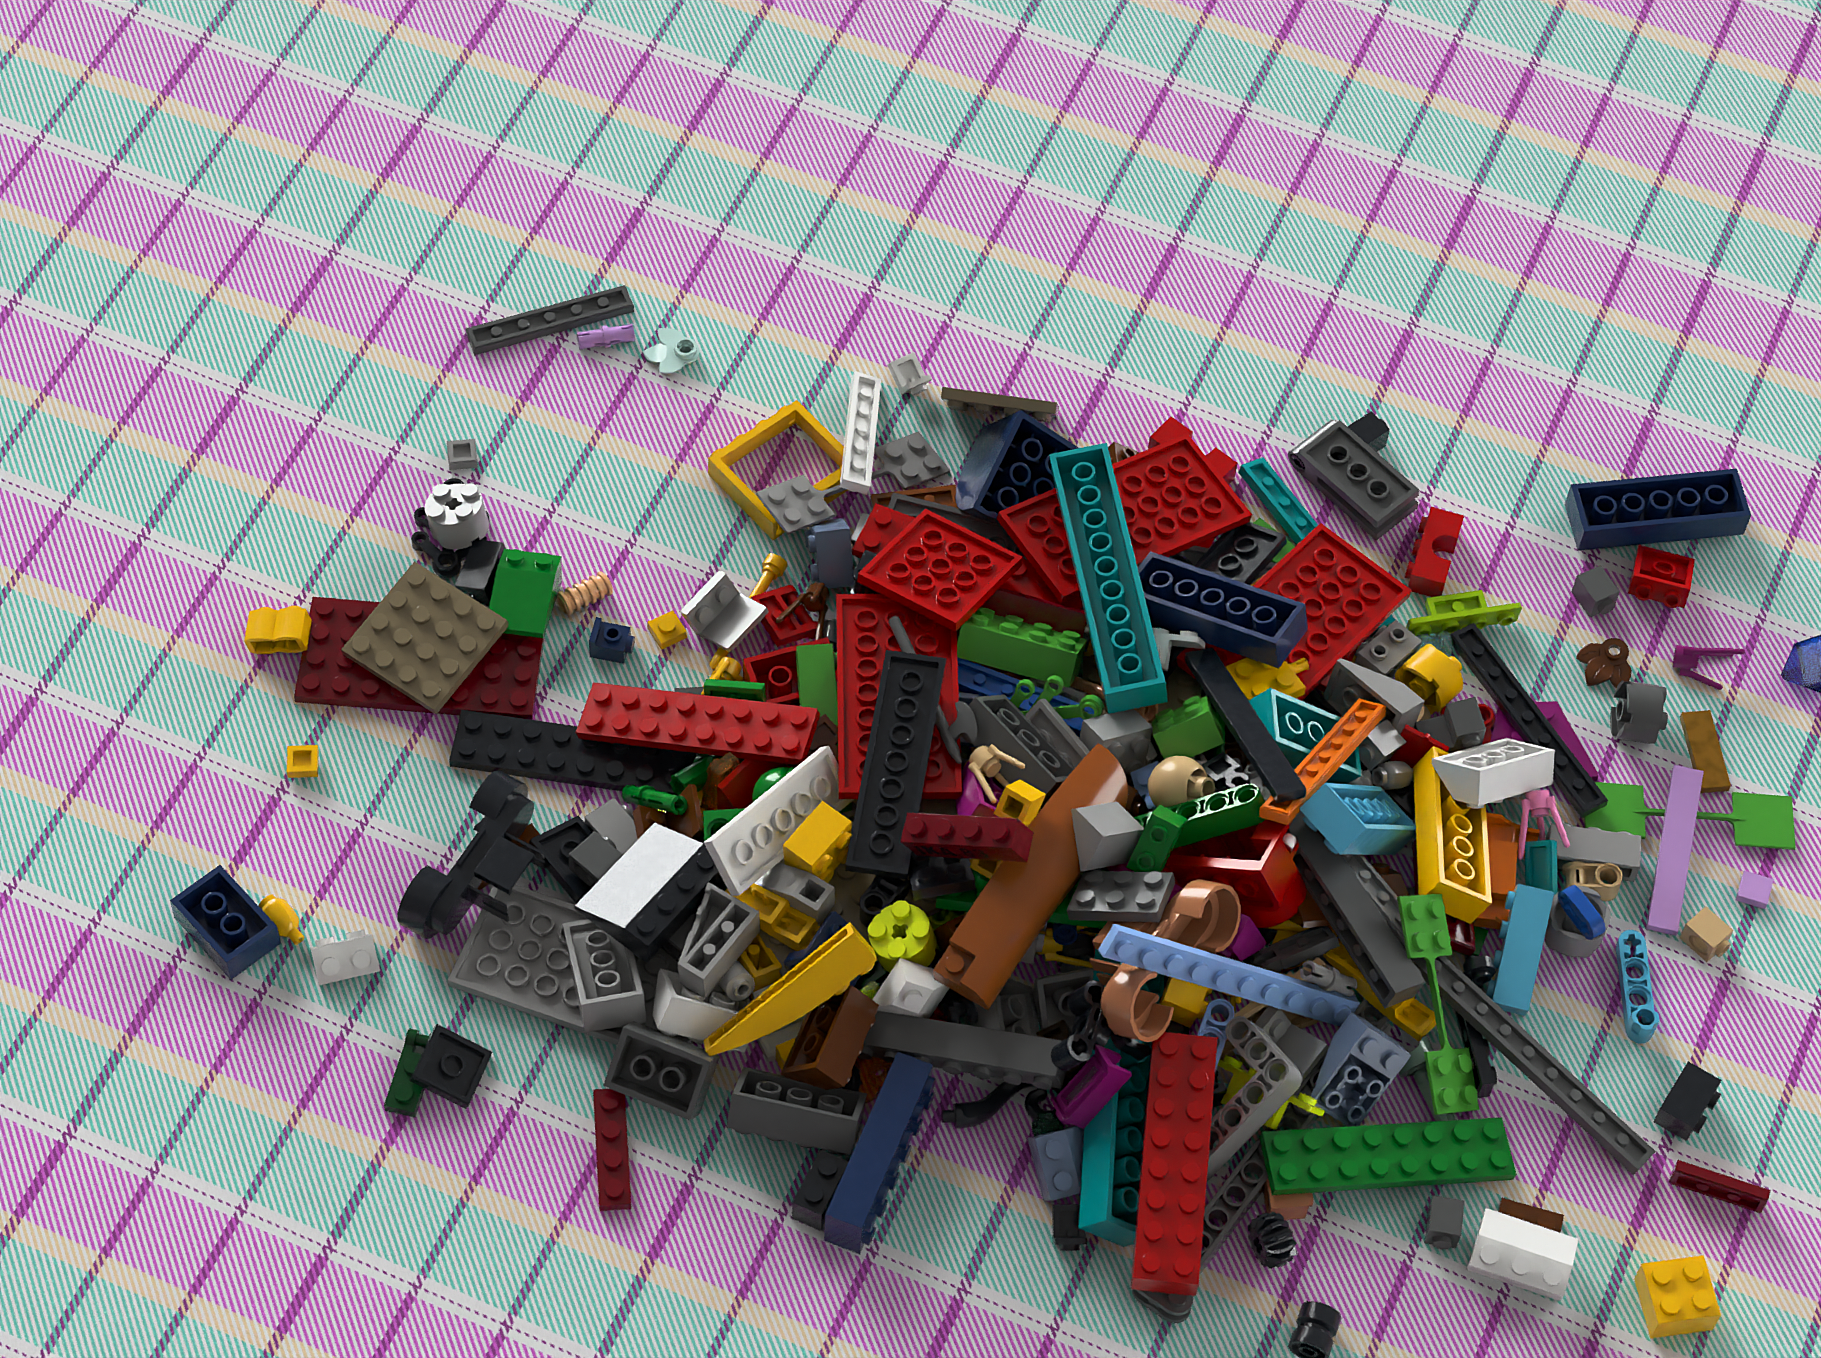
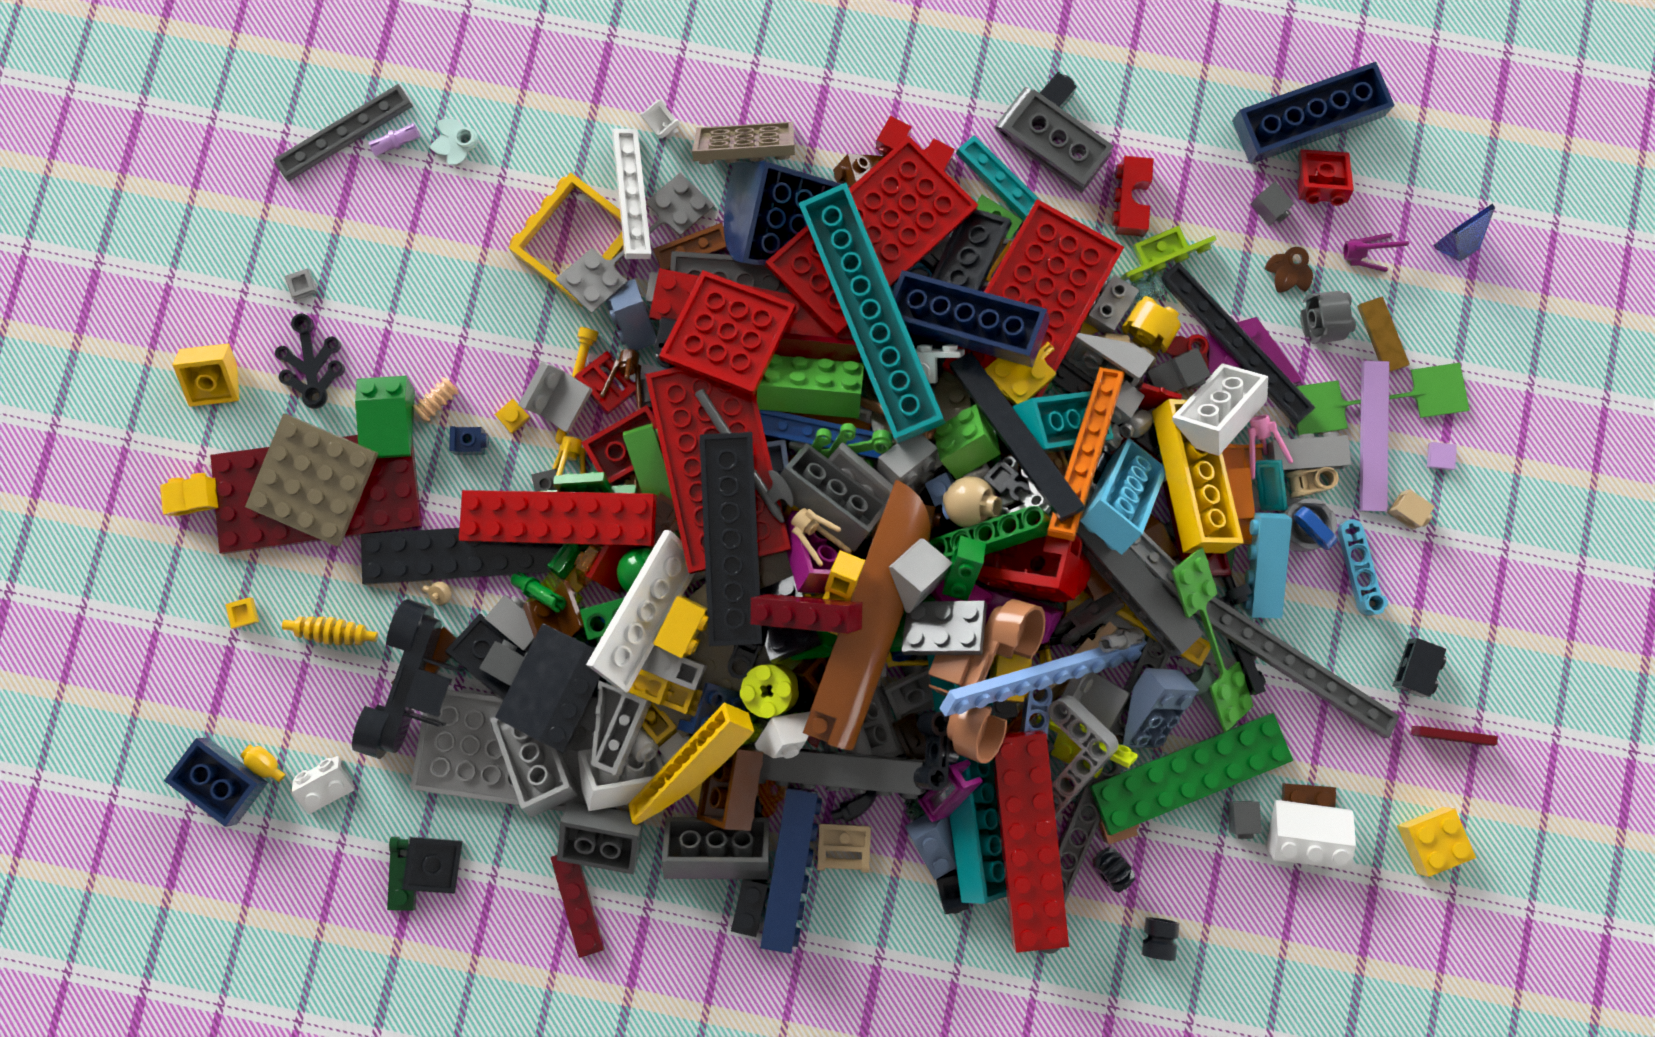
camera: 10 degrees left, 25 degrees up
(333, 518) = (207, 374): none -> yellow slope
(399, 799) = (329, 630): none -> yellow piece
(456, 515) = (308, 355): light grey brick -> none
(480, 570) = (341, 397): black hinge -> none
(538, 787) = (438, 593): none -> tan piece
(952, 1145) = (844, 838): none -> tan plate

